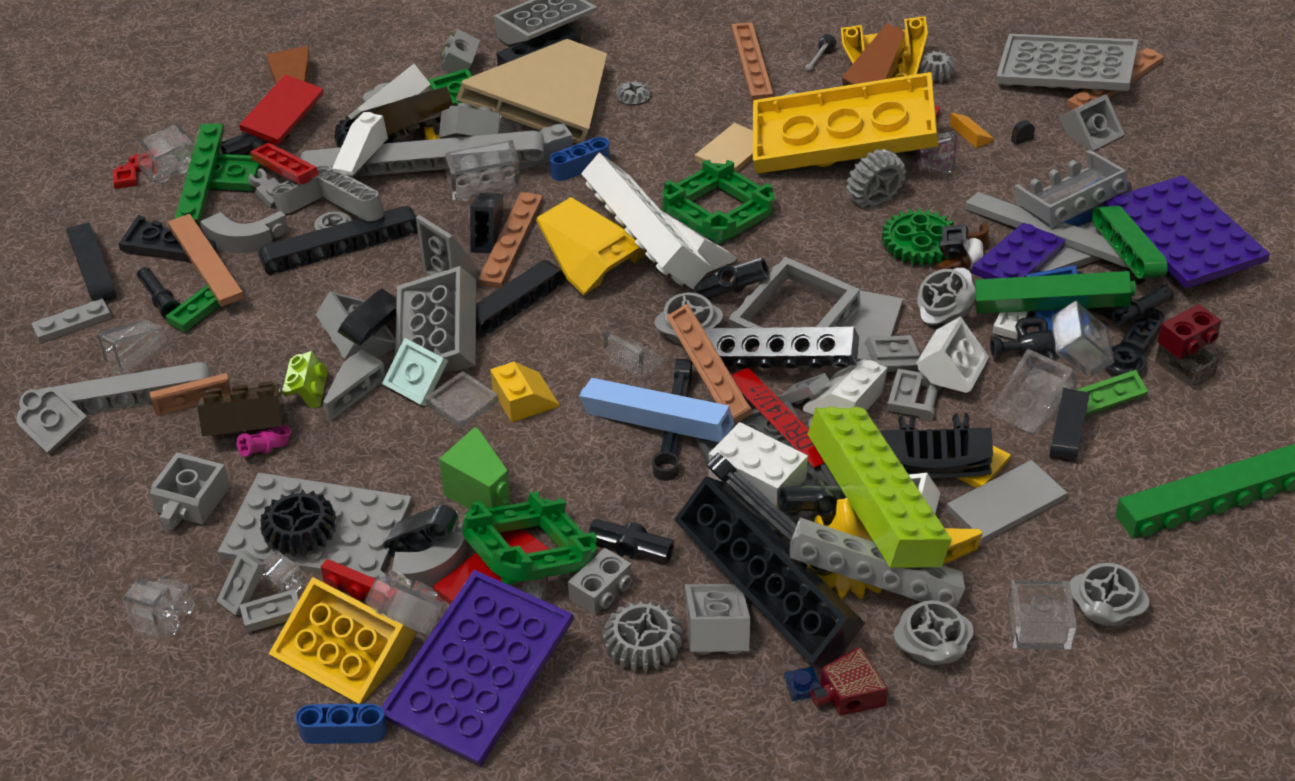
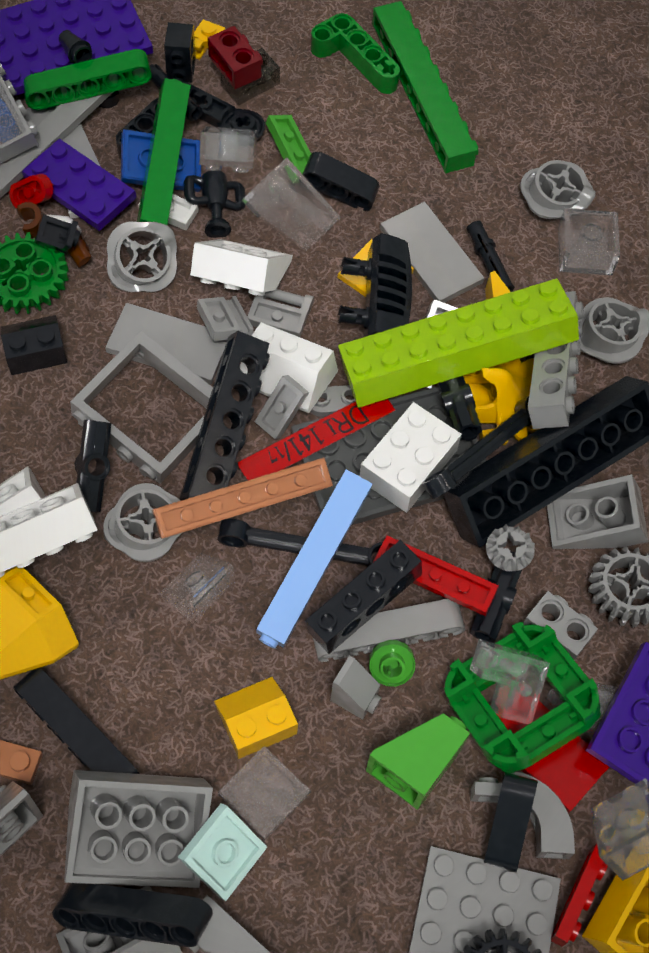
camera: 95 degrees left, 20 degrees up
(541, 438) = (355, 689): none -> light grey slope
(545, 521) = (518, 679): none -> clear brick
(566, 468) = (392, 663): none -> bright green plate
(599, 469) = (404, 624): none -> light grey beam
(615, 429) = (364, 596): none -> black brick
(641, 484) = (450, 580): none -> red plate
(662, 541) = (502, 557): none -> light grey gear
(850, 247) = (33, 345): none -> black slope
(1002, 230) = (32, 189): none -> red plate
(1017, 540) = (478, 234): none -> black pin
(1157, 225) = (75, 47): none -> black cone
(1188, 293) = (180, 51): none -> black brick
(1234, 333) = (201, 35): none -> yellow plate
(1263, 429) = (348, 37): none -> green beam

